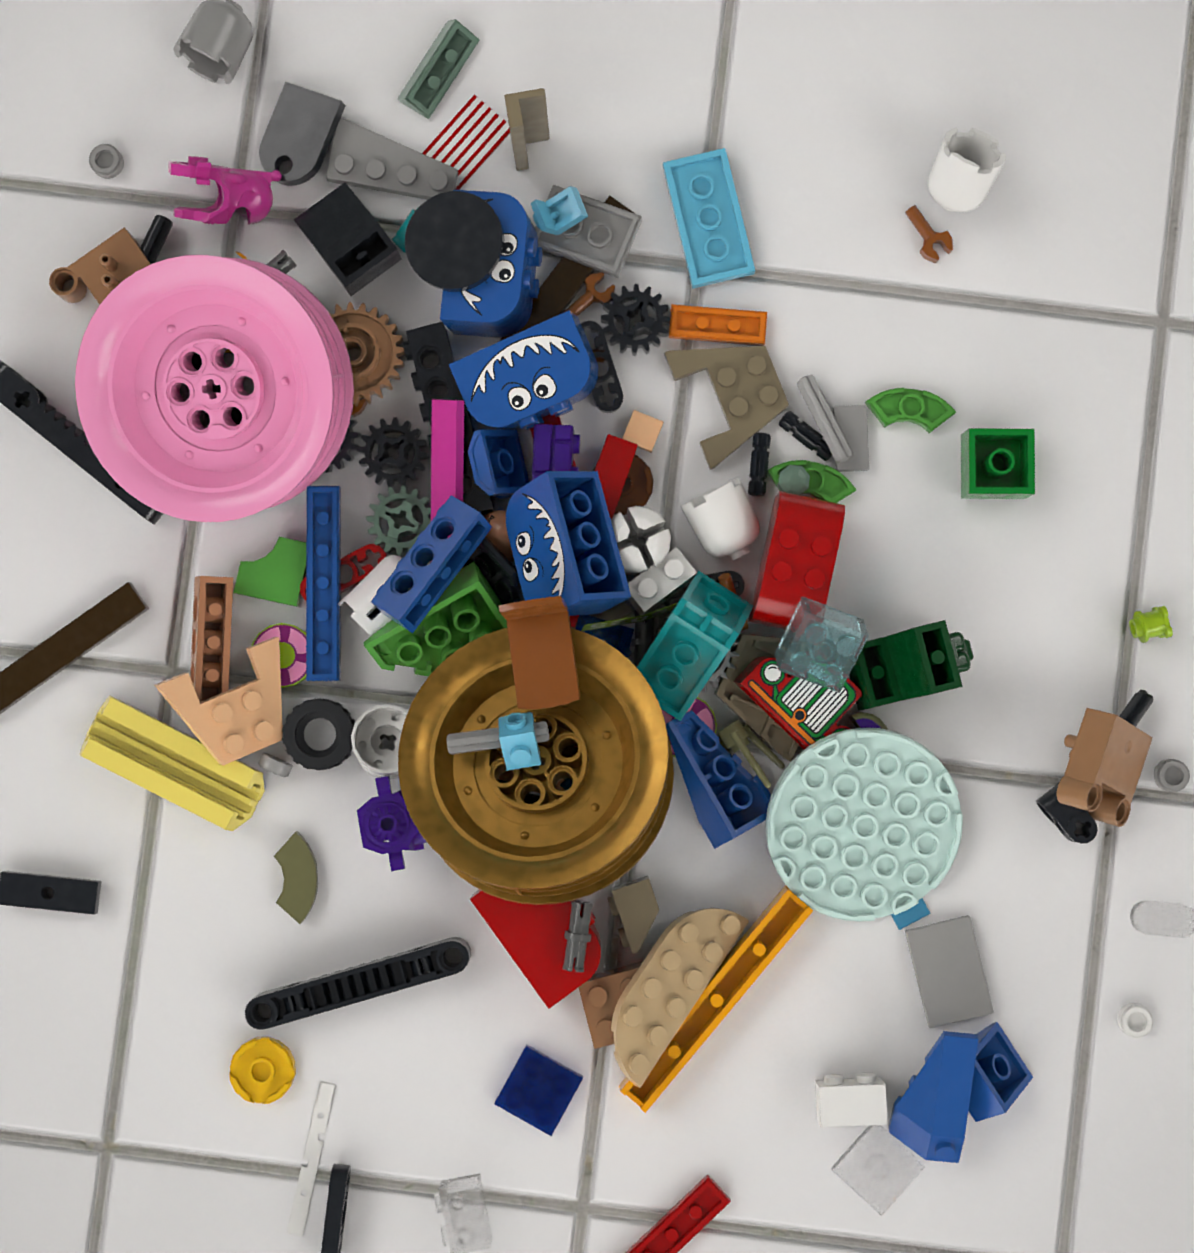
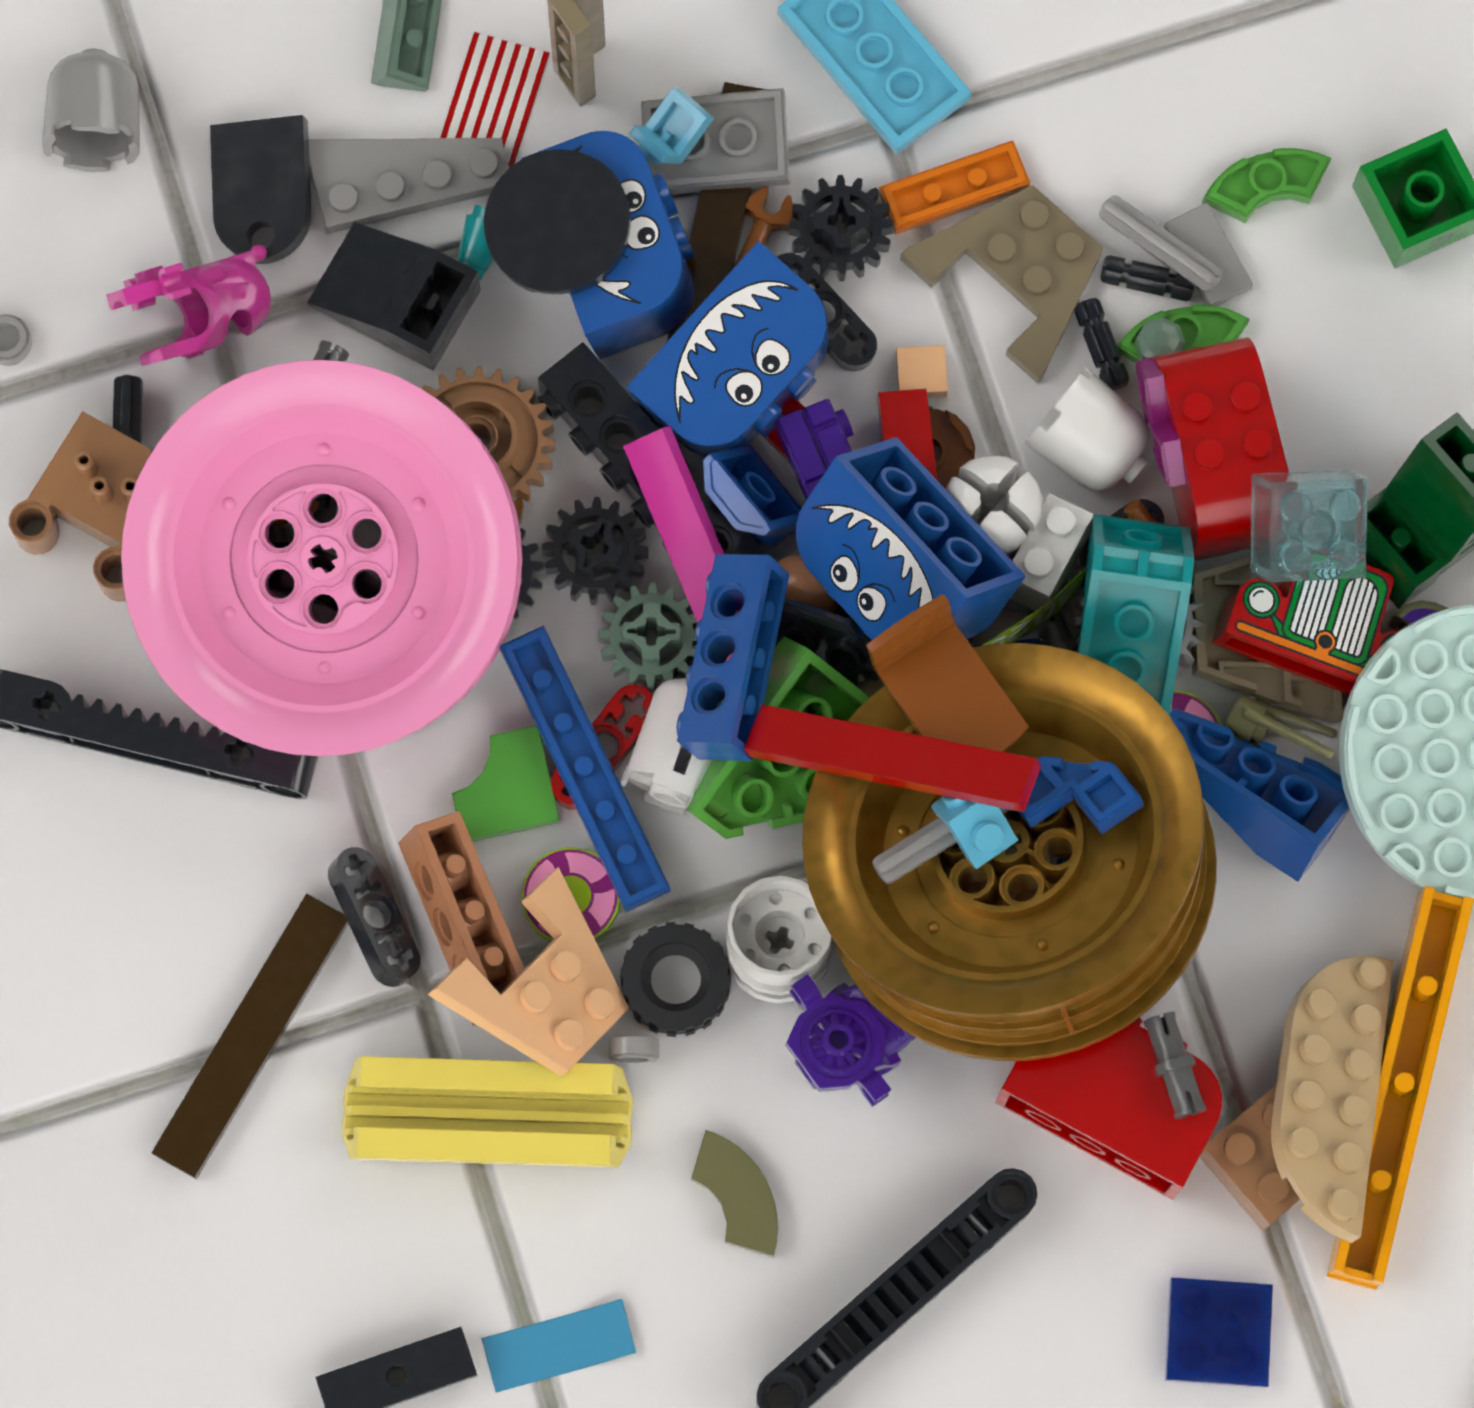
camera: 30 degrees left, 10 degrees down
(149, 623) = (367, 936): none -> black beam
(153, 916) = (559, 1345): none -> dark azure sticker
(489, 679) = (893, 758): none -> red tile
(579, 739) = (1095, 787): none -> blue tile
(637, 910) = (1233, 1016): dark tan slope -> none
(764, 534) = (1165, 438): none -> magenta tile

